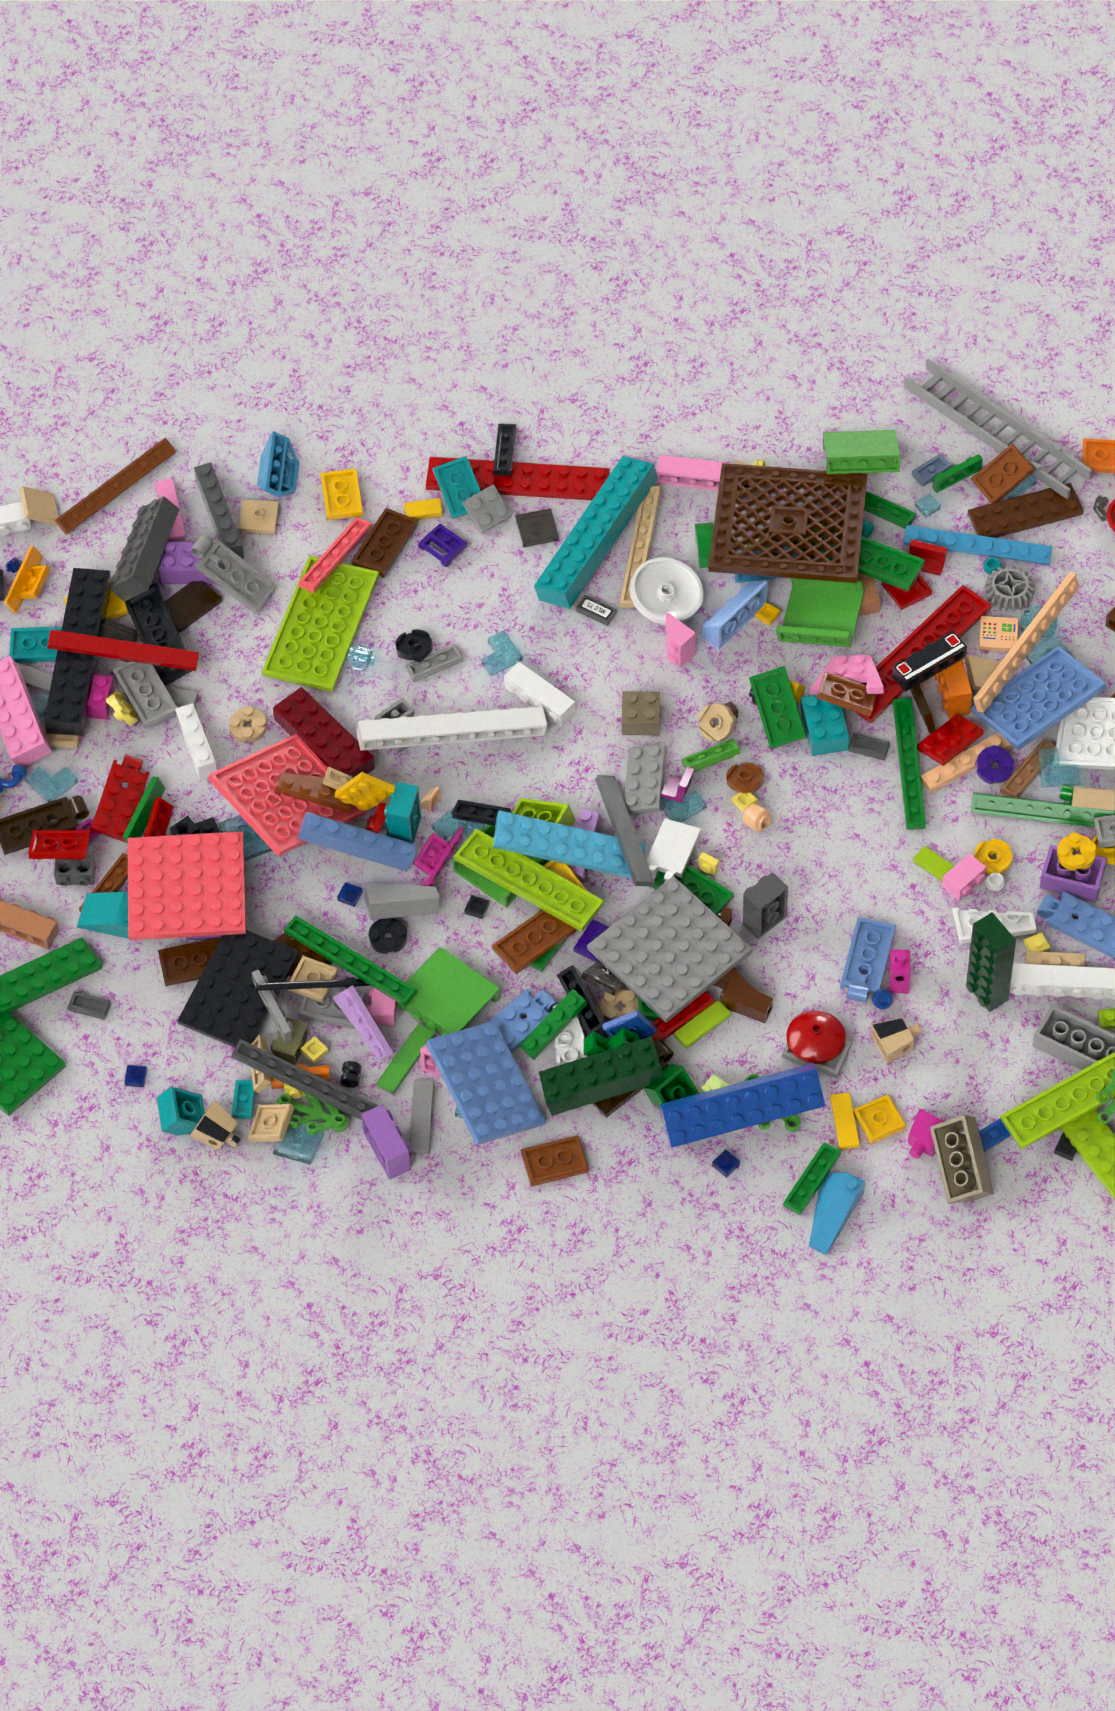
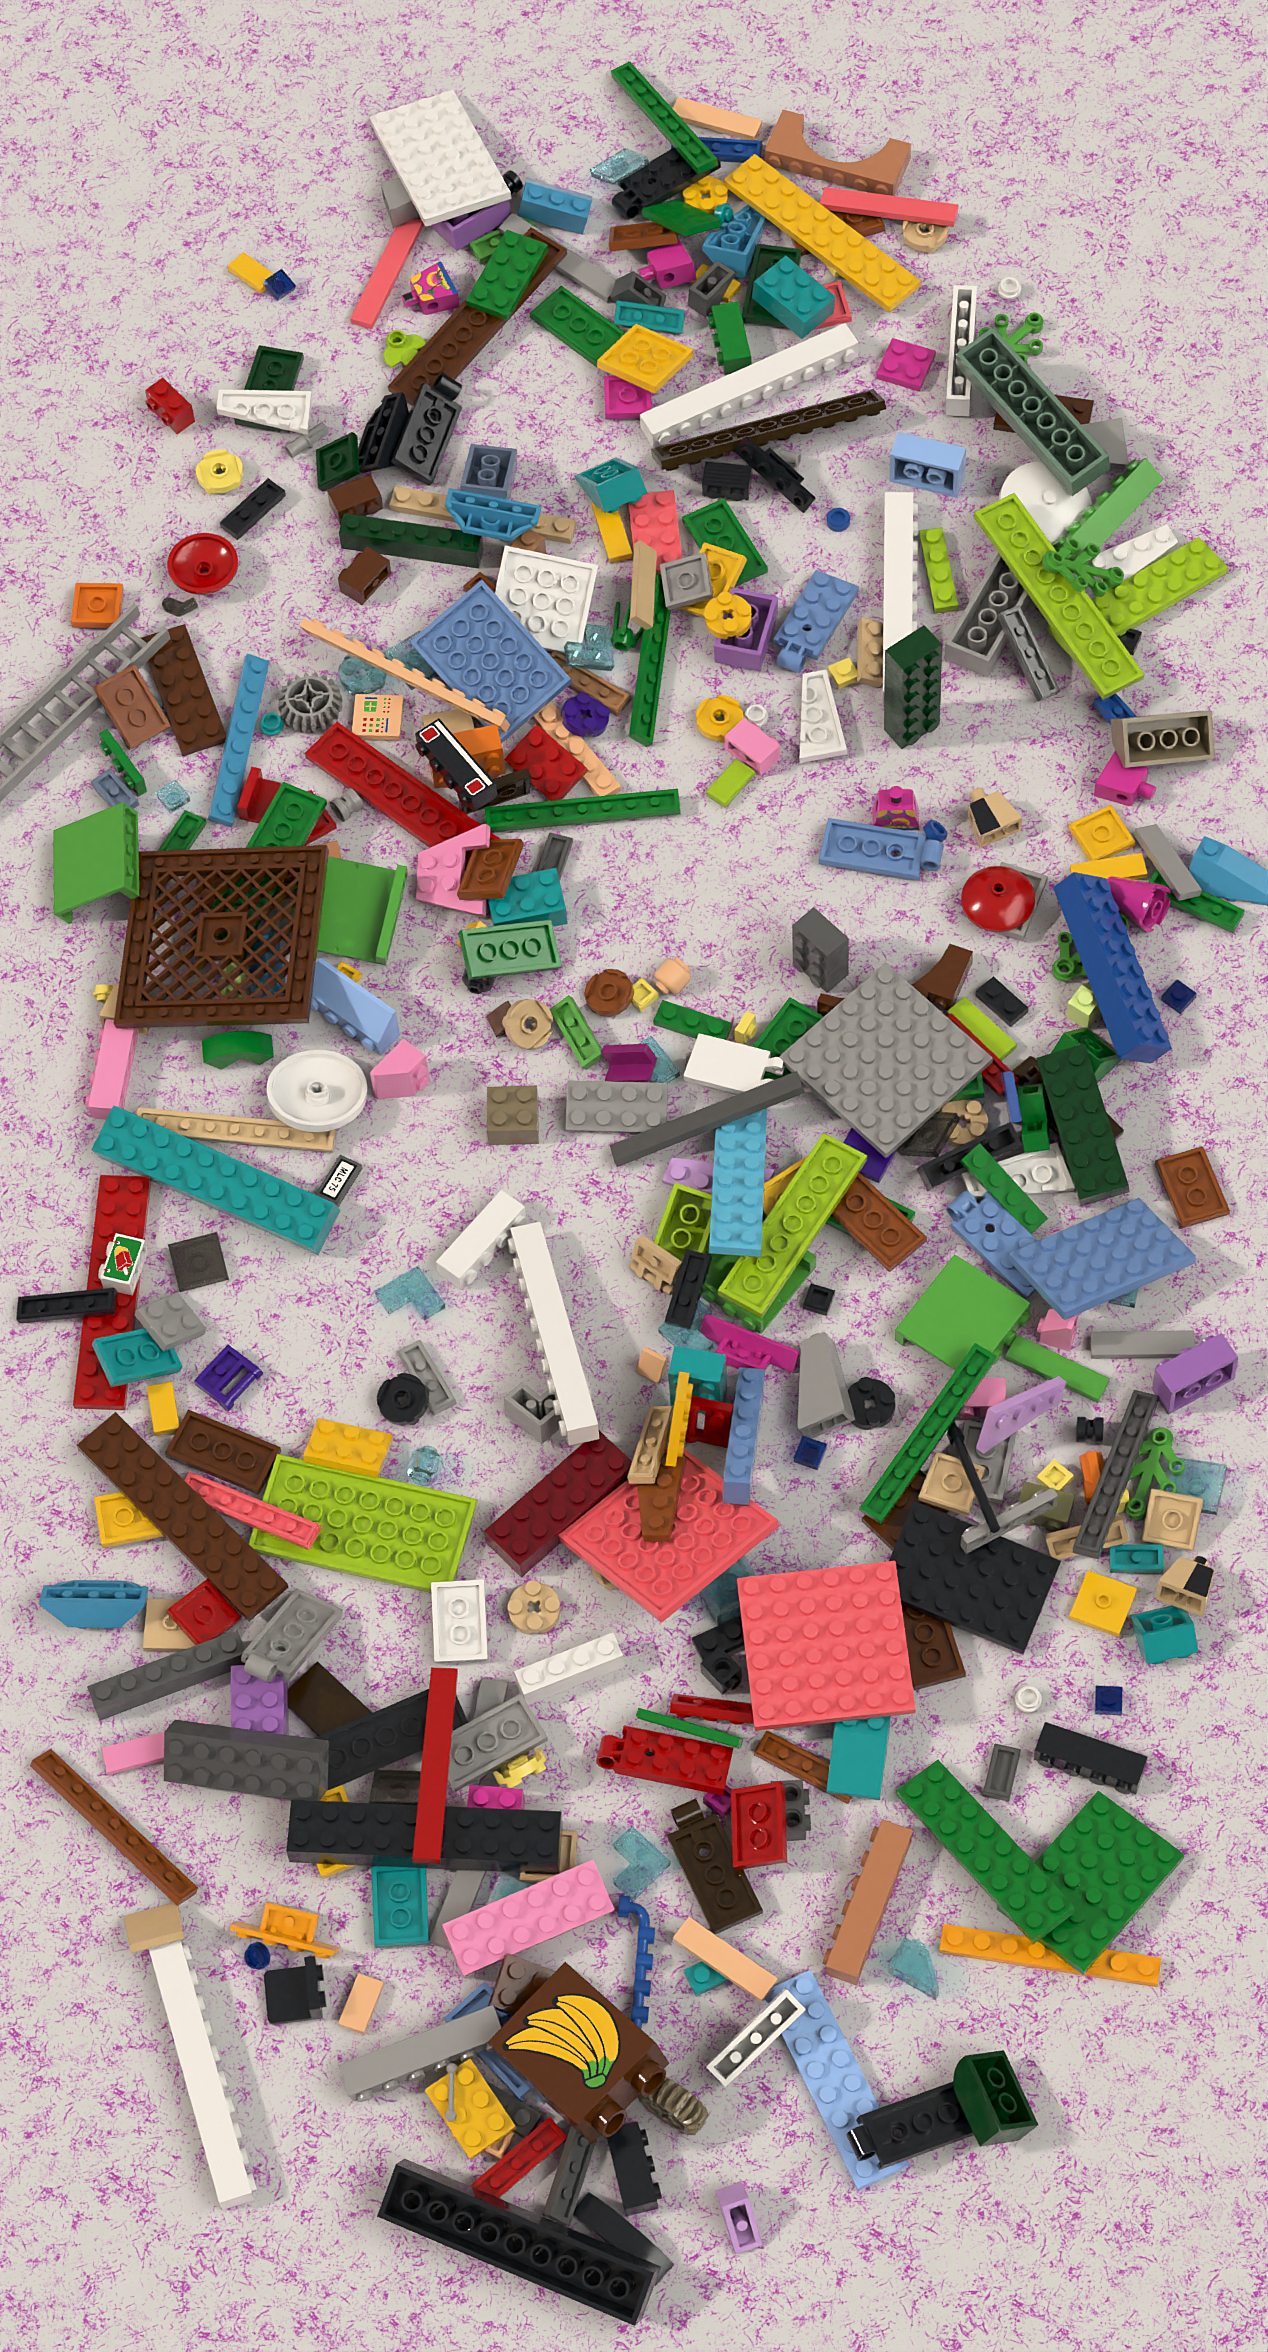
camera: 90 degrees left, 5 degrees up
(89, 1058) = (1090, 1758): none -> black brick
(142, 1024) = (1028, 1699): none -> white plate
(212, 1077) = (1103, 1603): none -> yellow plate
(238, 676) = (459, 1621): none -> white plate
(261, 532) = (203, 1614): none -> red tile
(334, 516) = (183, 1517): none -> reddish brown plate
(380, 613) = (347, 1448): none -> yellow plate
(511, 793) = (655, 1265): none -> tan plate
(529, 477) = (123, 1263): none -> brick
(718, 832) = (690, 1022): none -> green plate
(727, 1039) = (1001, 1001): none -> black plate
(808, 1134) = (1140, 901): none -> dark pink cone
(846, 1158) = (1167, 862): none -> light grey tile
(916, 611) = (347, 804): none -> light grey wheel
(1046, 1067) = (1028, 653): none -> dark grey tile

